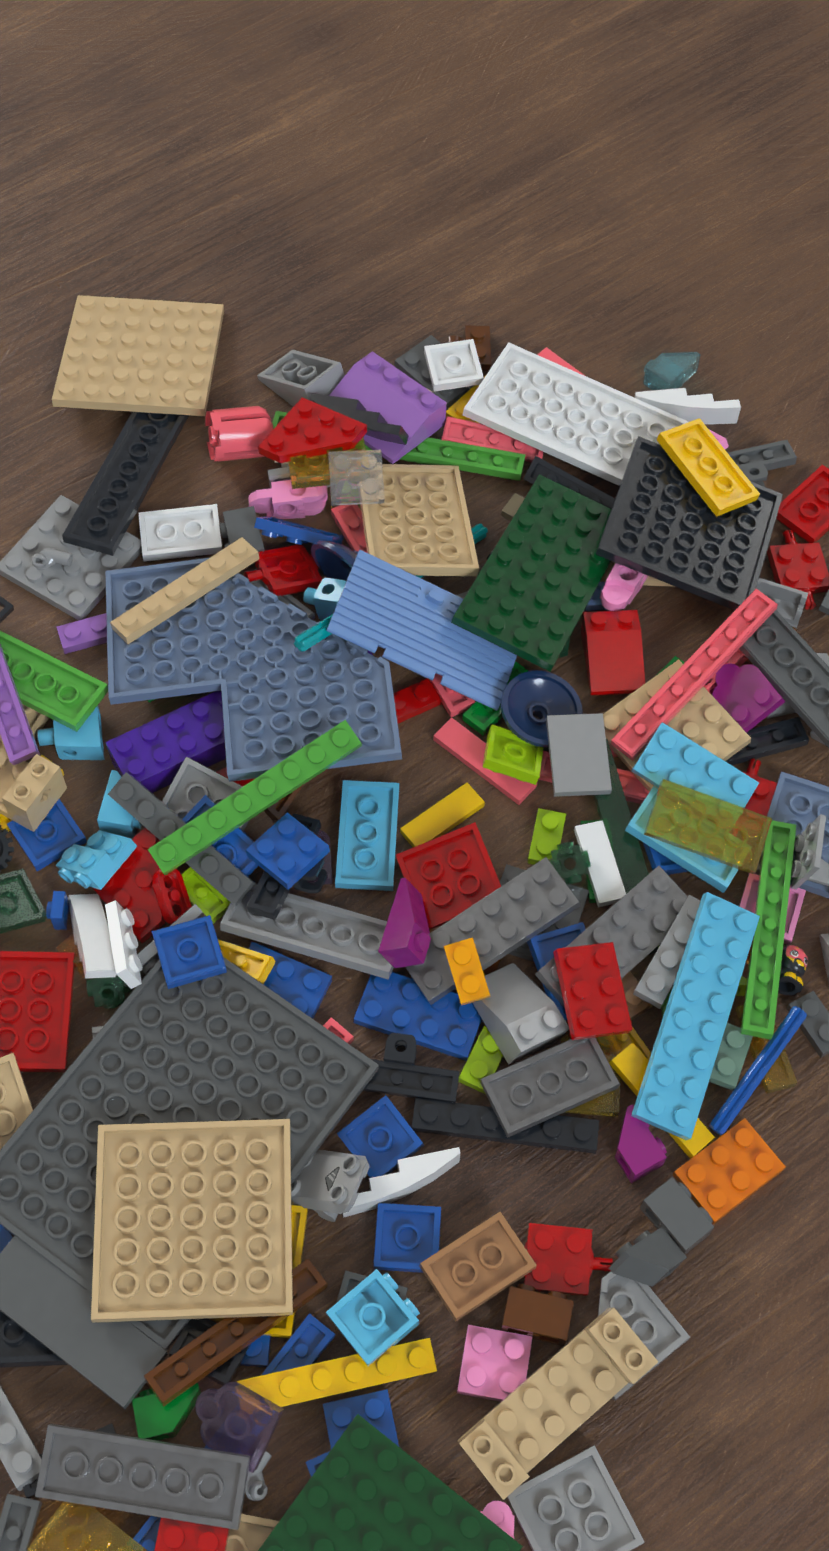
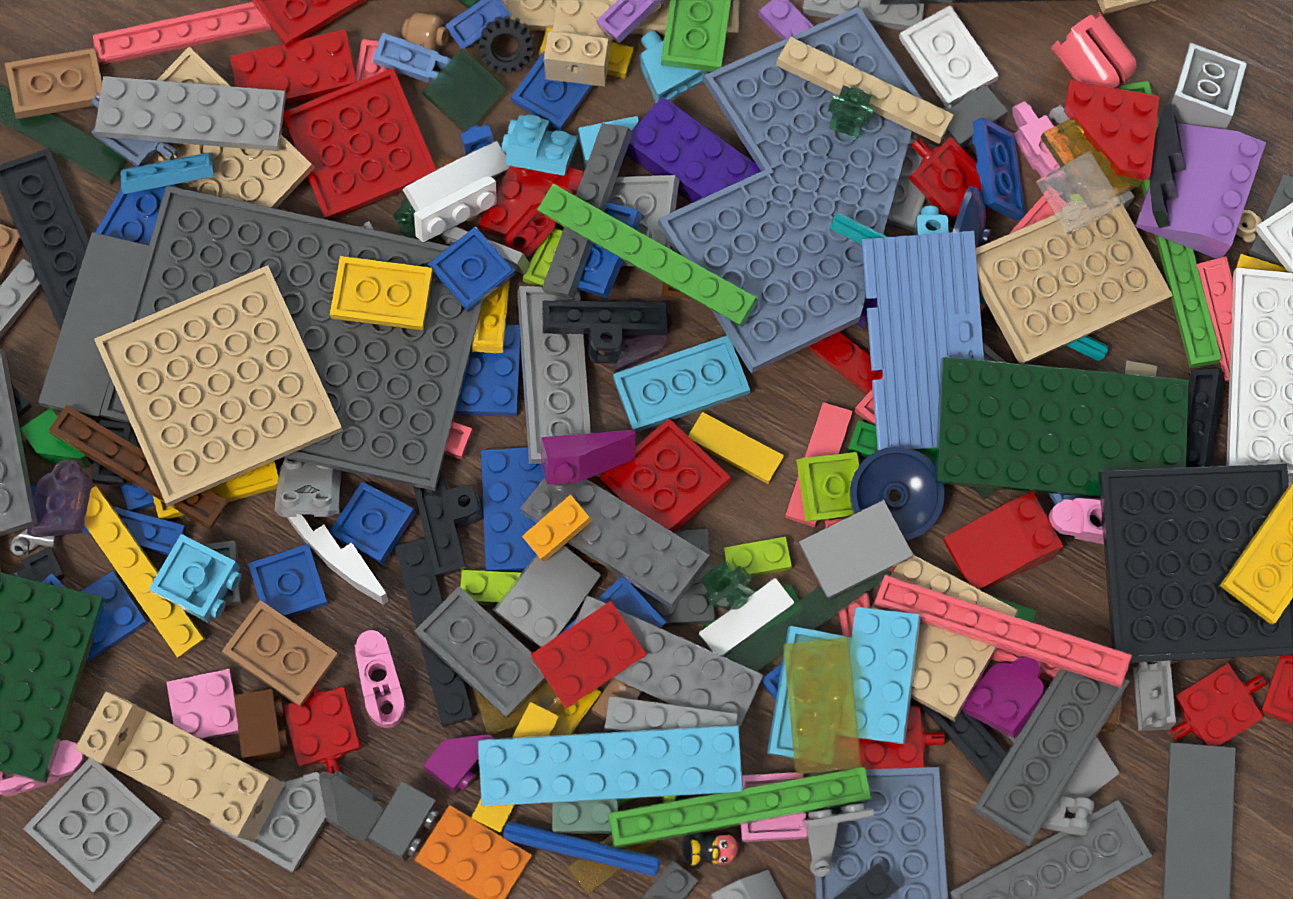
camera: 70 degrees right, 10 degrees up
(175, 1035) = (381, 293): none -> yellow plate
(204, 601) = (850, 111): none -> clear green brick
(287, 850) = (611, 311): blue plate -> none
(290, 1476) = (40, 566): none -> black plate
(506, 1186) = (374, 654): none -> bright pink piece

